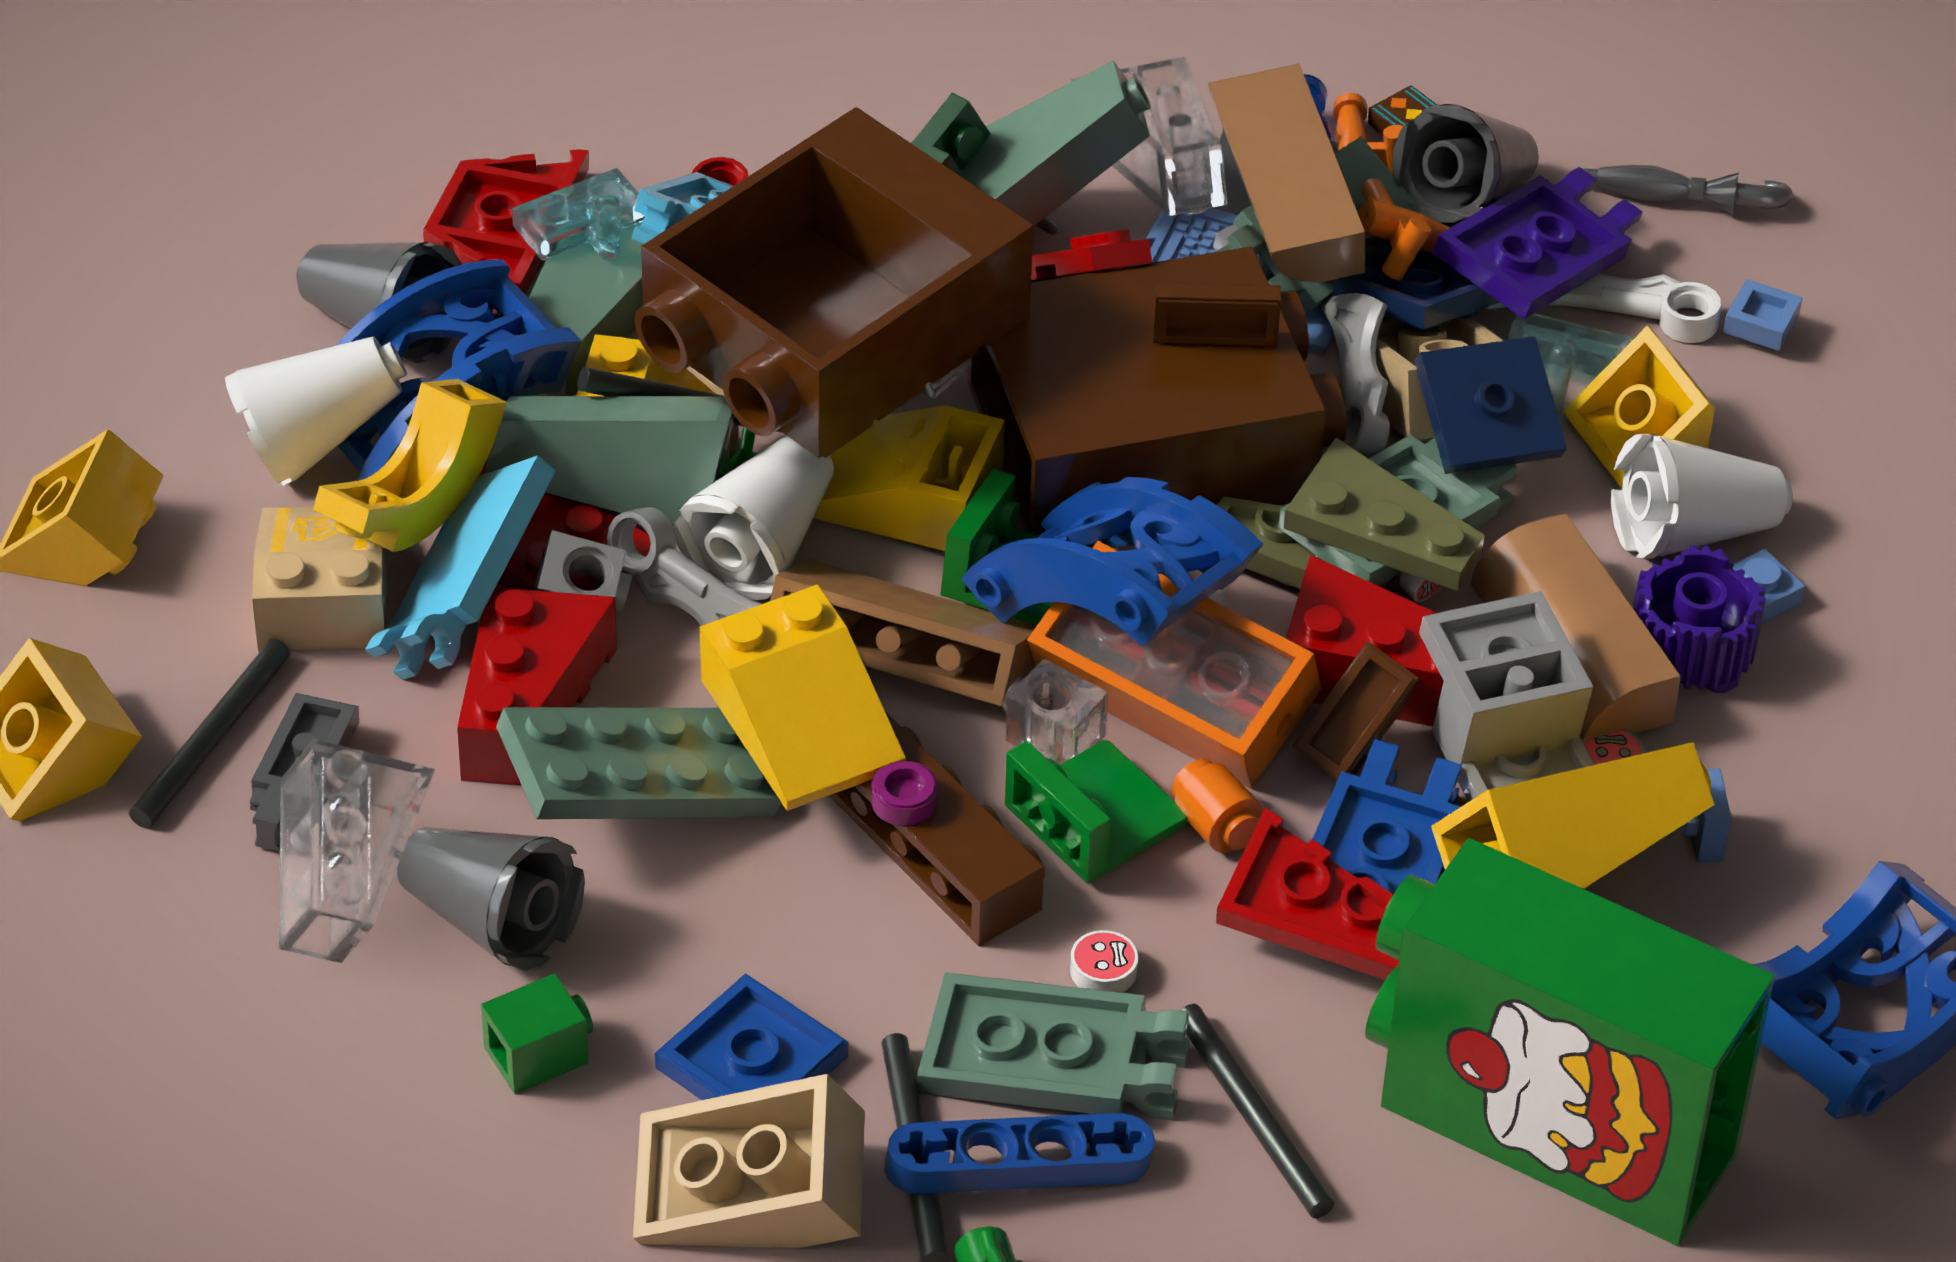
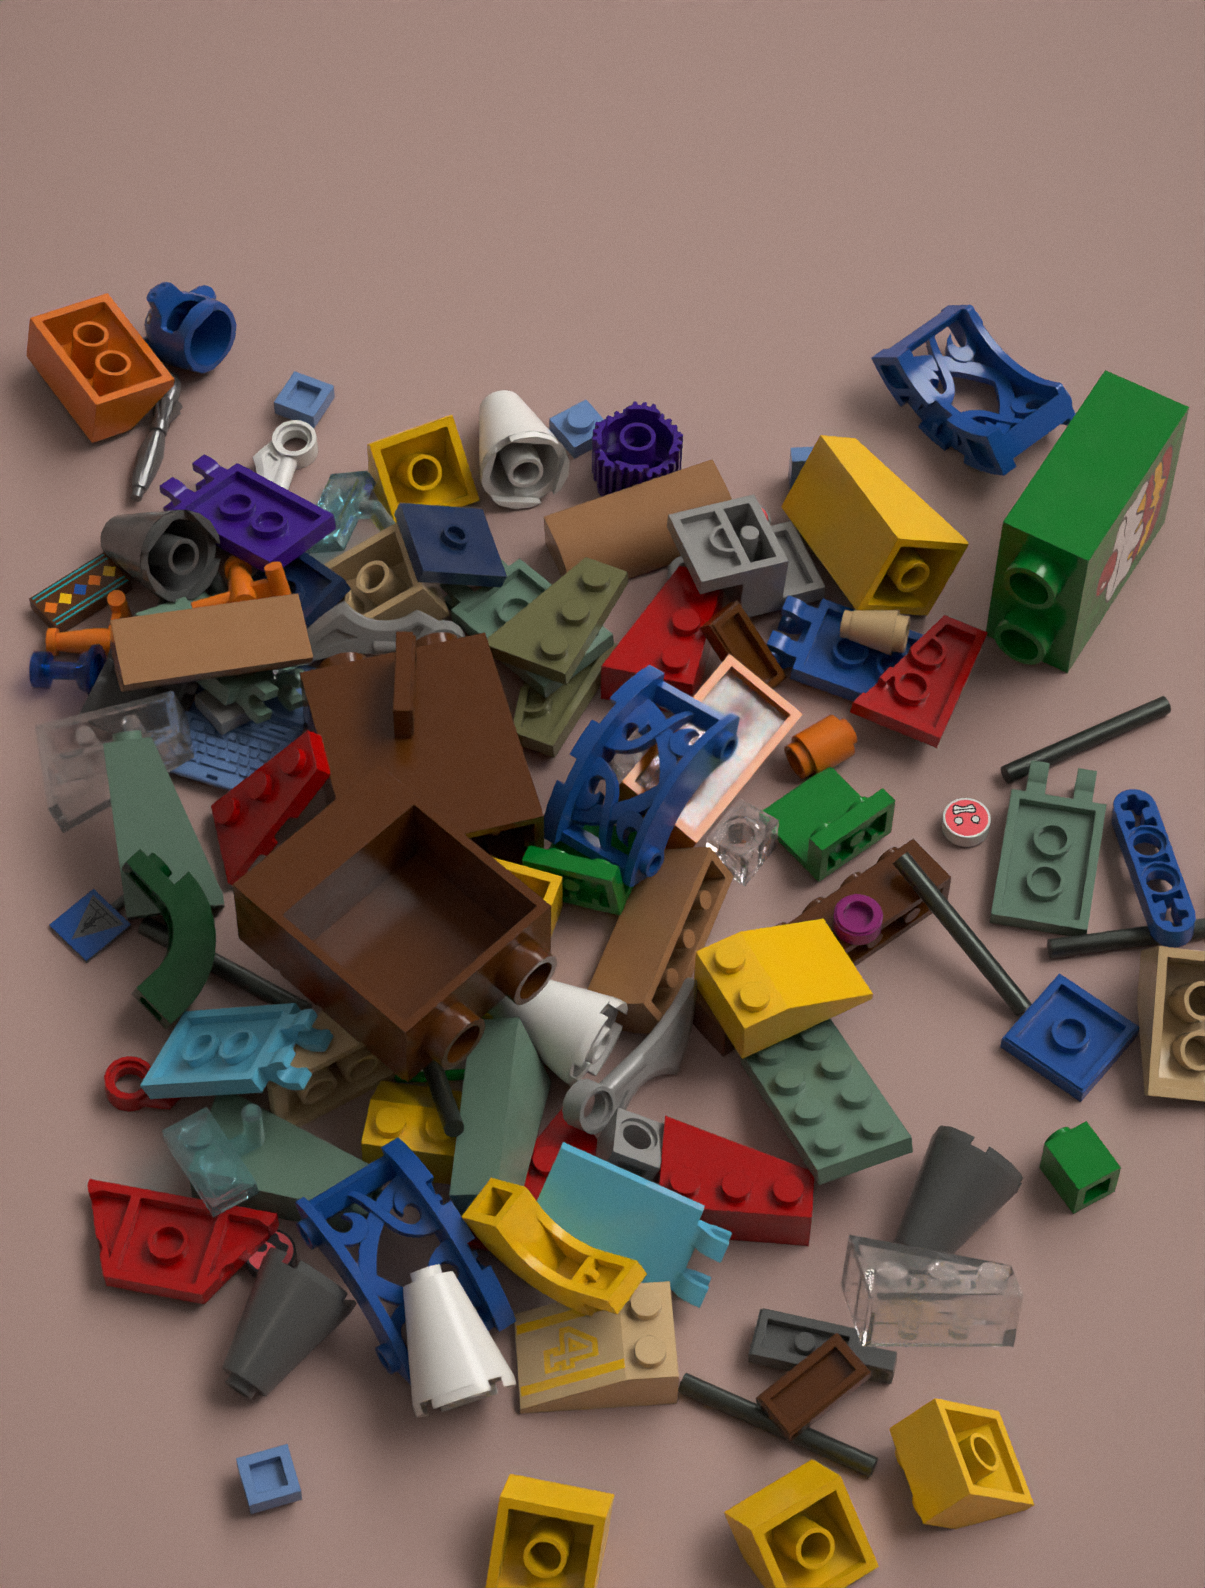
camera: 90 degrees left, 10 degrees up
(121, 890) = (959, 1464): none -> yellow slope
(197, 297) = (269, 1479): none -> medium blue plate
(237, 741) = (813, 1387): none -> reddish brown tile
(895, 916) = (962, 933): none -> pearl dark grey bar
(1399, 845) = (877, 629): none -> tan cone
(1770, 107) = (97, 365): none -> orange slope
(1851, 189) = (188, 327): none -> blue piece

